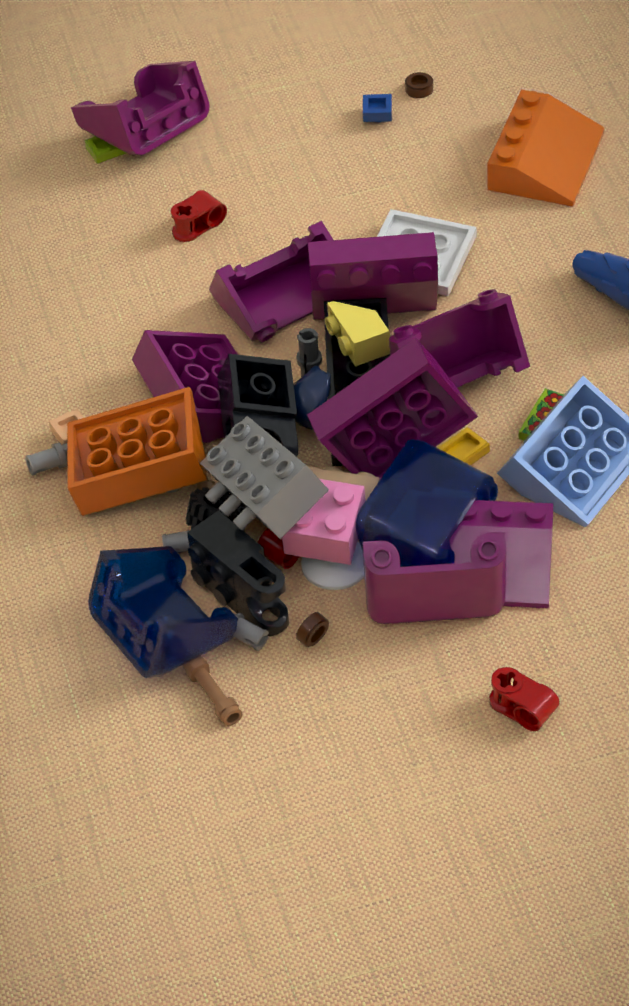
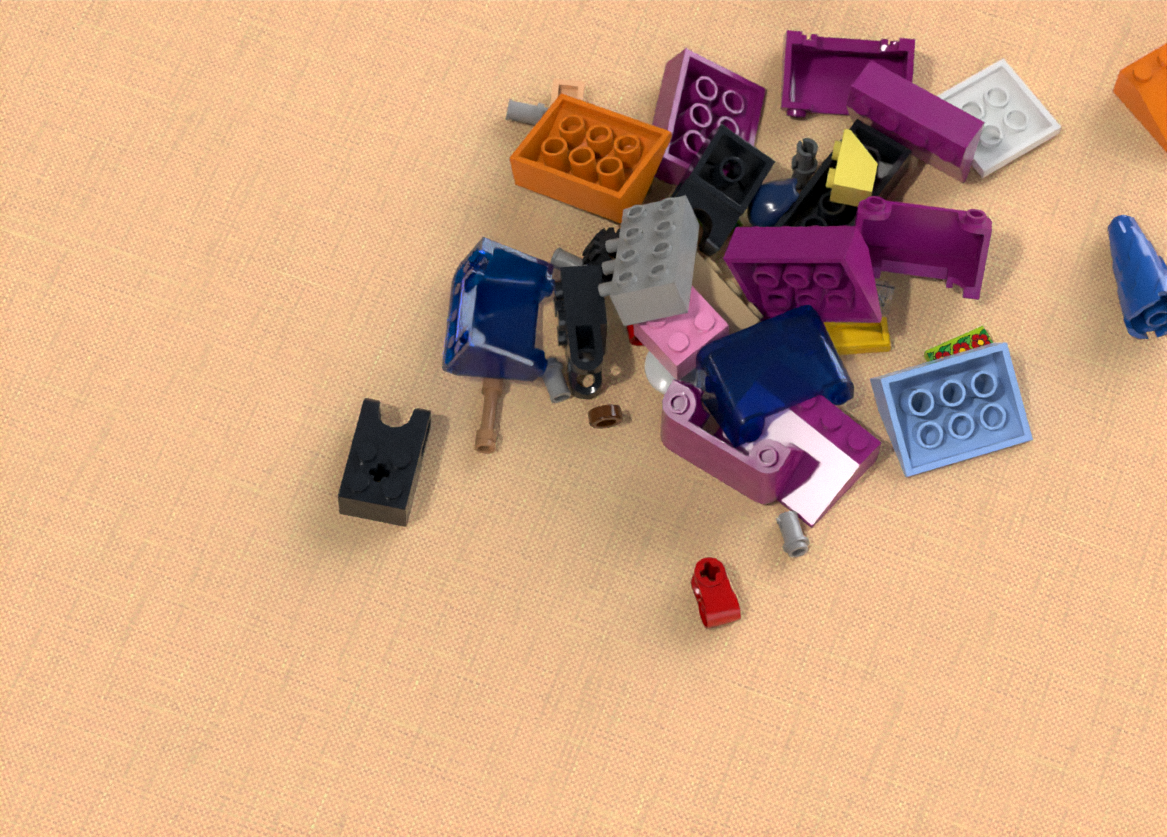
camera: 30 degrees right, 15 degrees up
(161, 783) = (386, 456): none -> black brick
(547, 621) = (794, 541): none -> light grey pin

